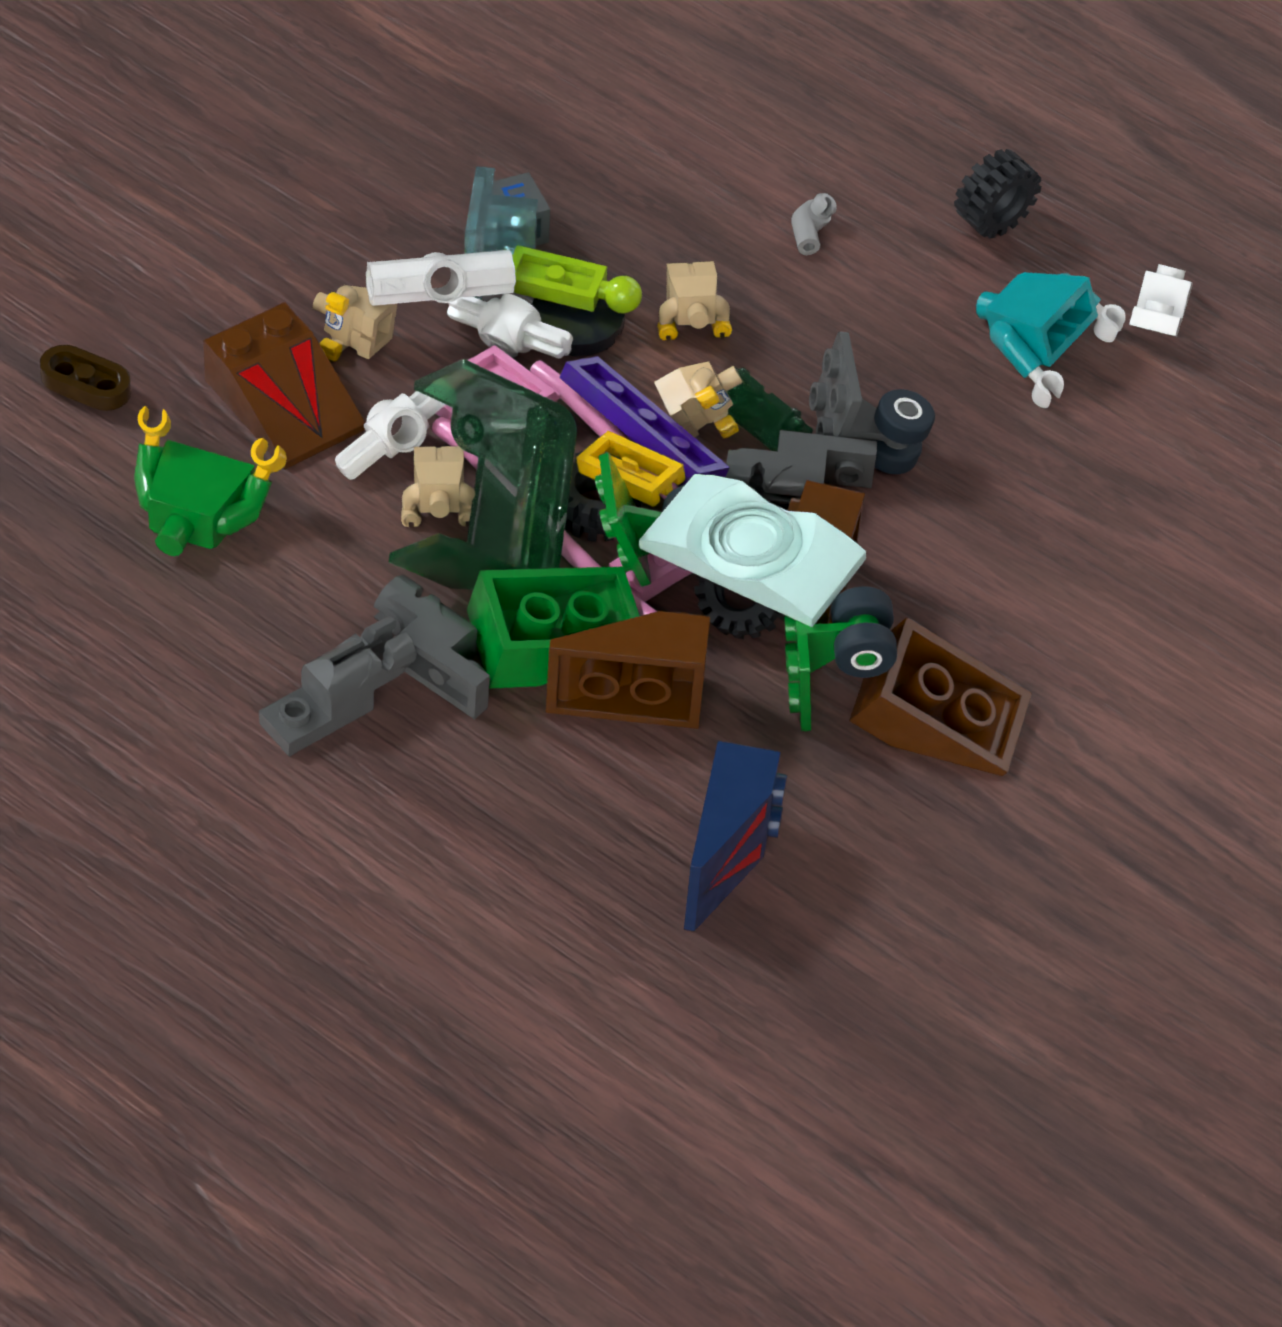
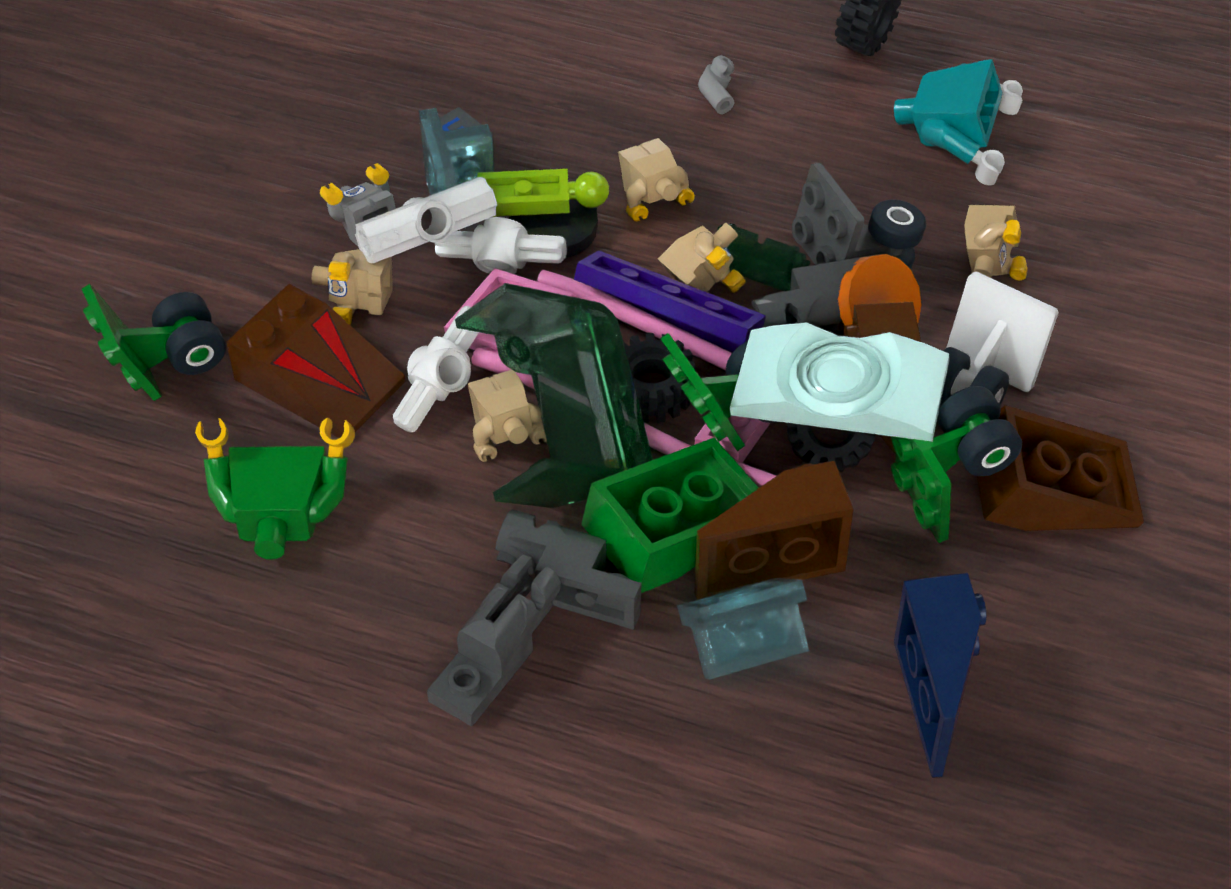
camera: 15 degrees left, 0 degrees up
(89, 379) = (120, 410): dark brown plate -> none
(168, 321) = (179, 332): none -> plate
(390, 240) = (360, 202): none -> light grey piece
(572, 746) = (747, 626): none -> clear light blue bracket
(639, 483) = (699, 354): yellow tile -> none
(863, 469) = (877, 281): none -> orange tile
(946, 560) = (997, 335): none -> white plate
(999, 462) = (990, 238): none -> tan piece
(1162, 300) = (1044, 67): white slope -> none

